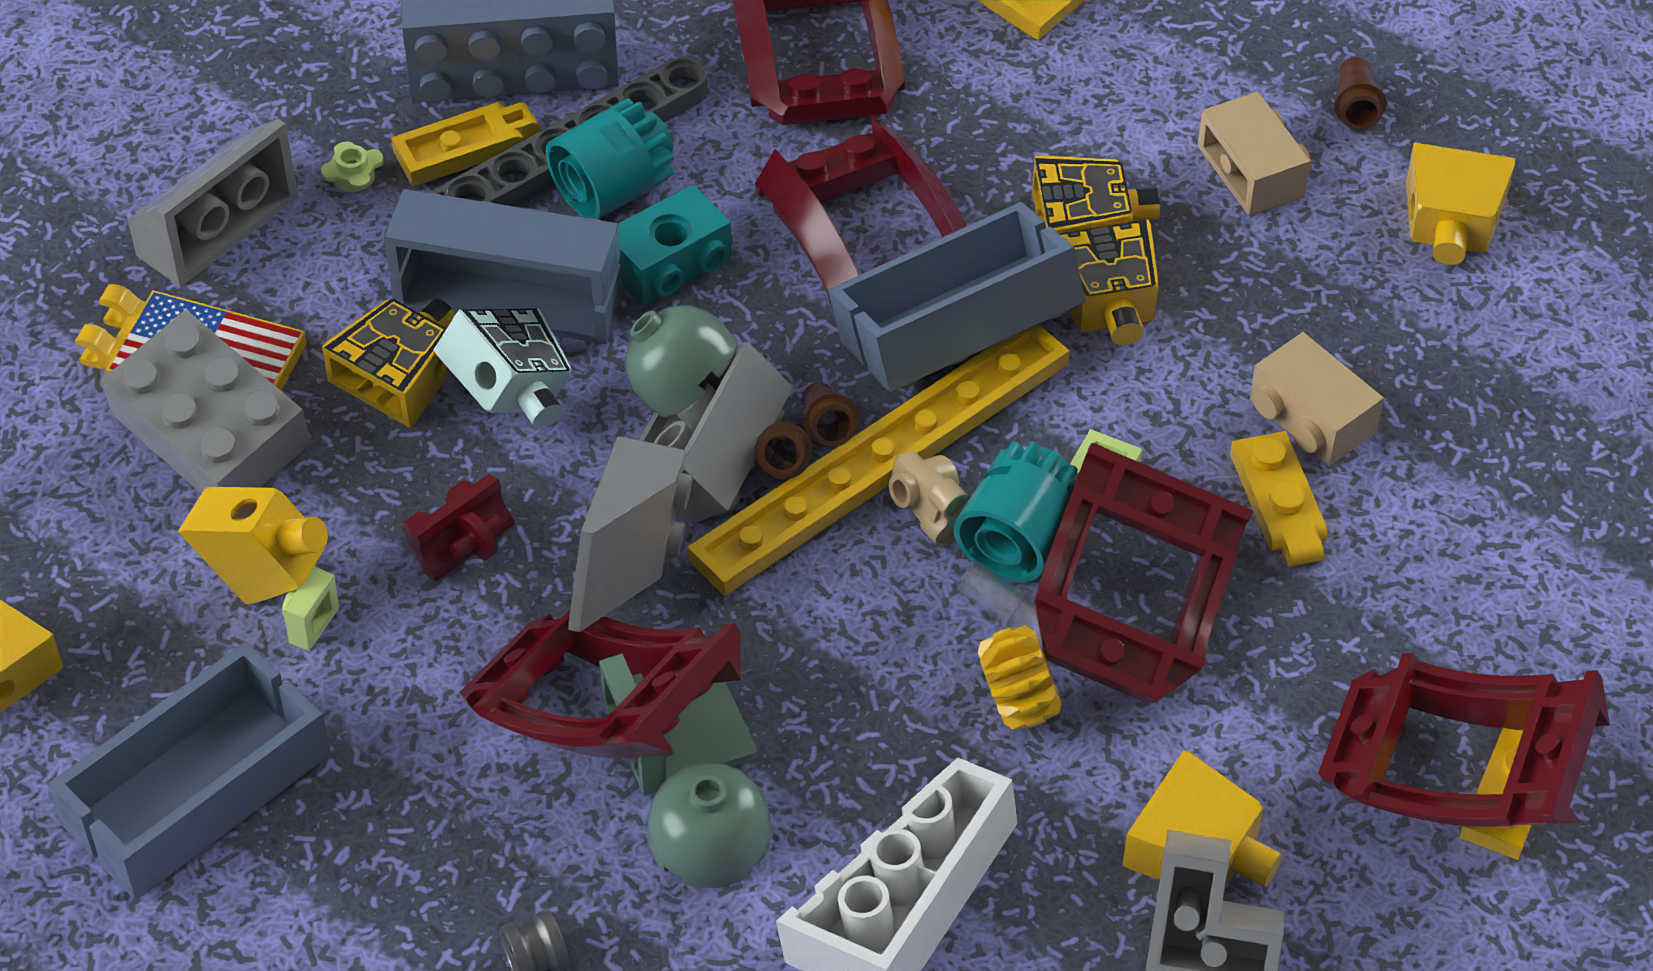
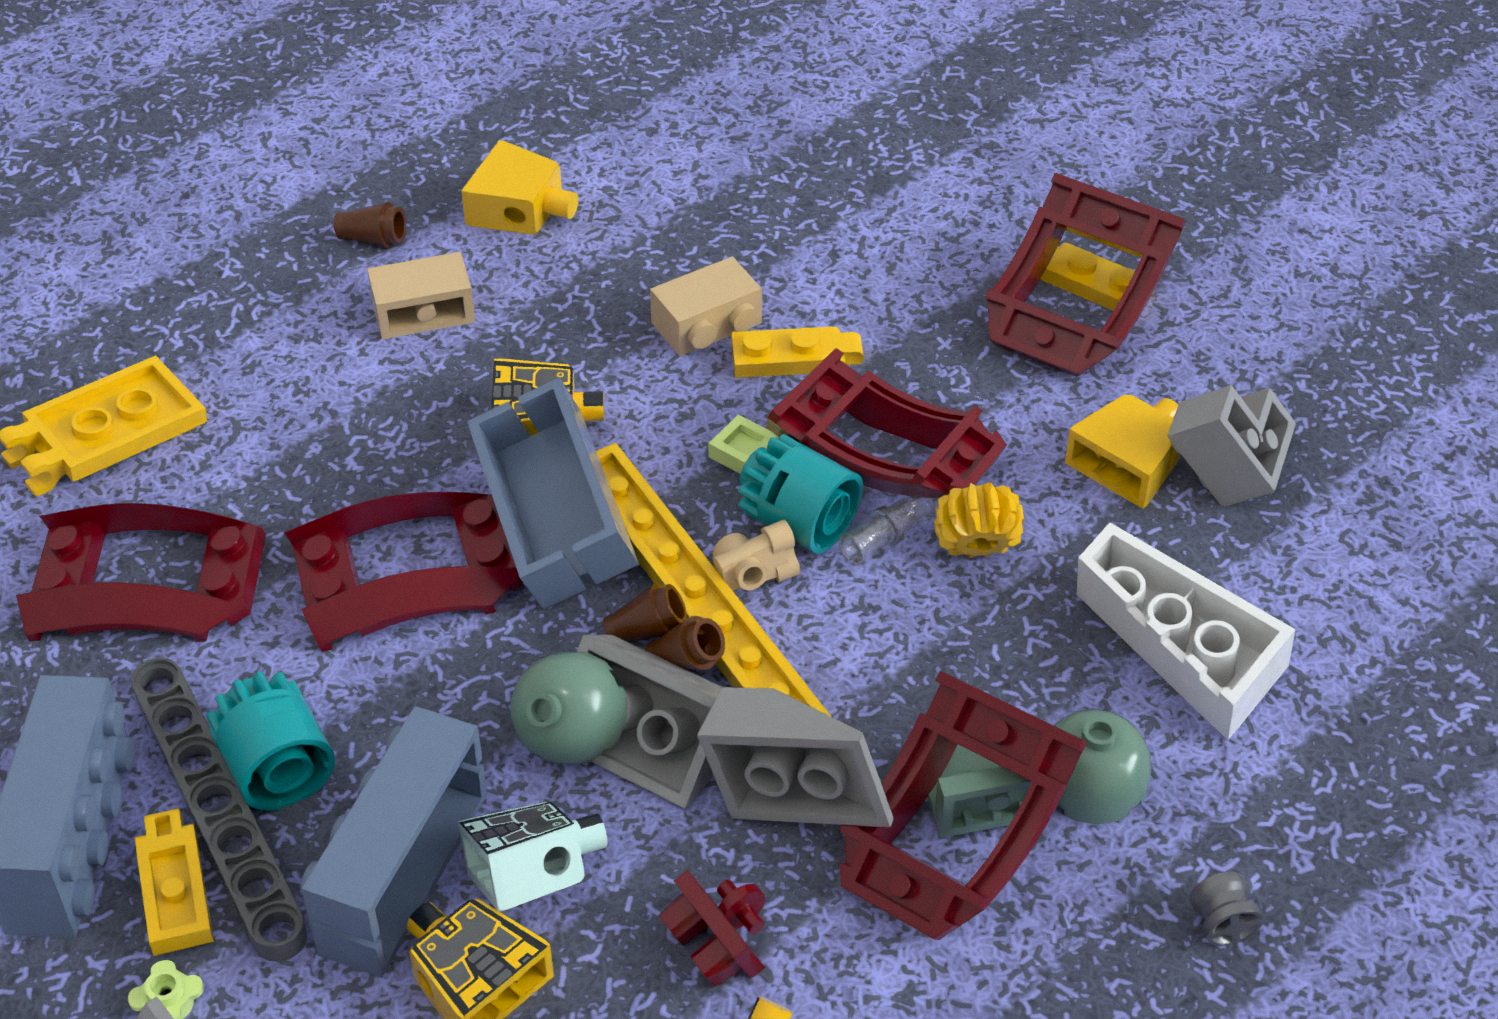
camera: 80 degrees left, 5 degrees down
(672, 244) = (380, 697): teal brick -> none
(1088, 194) = (437, 406): torso -> none

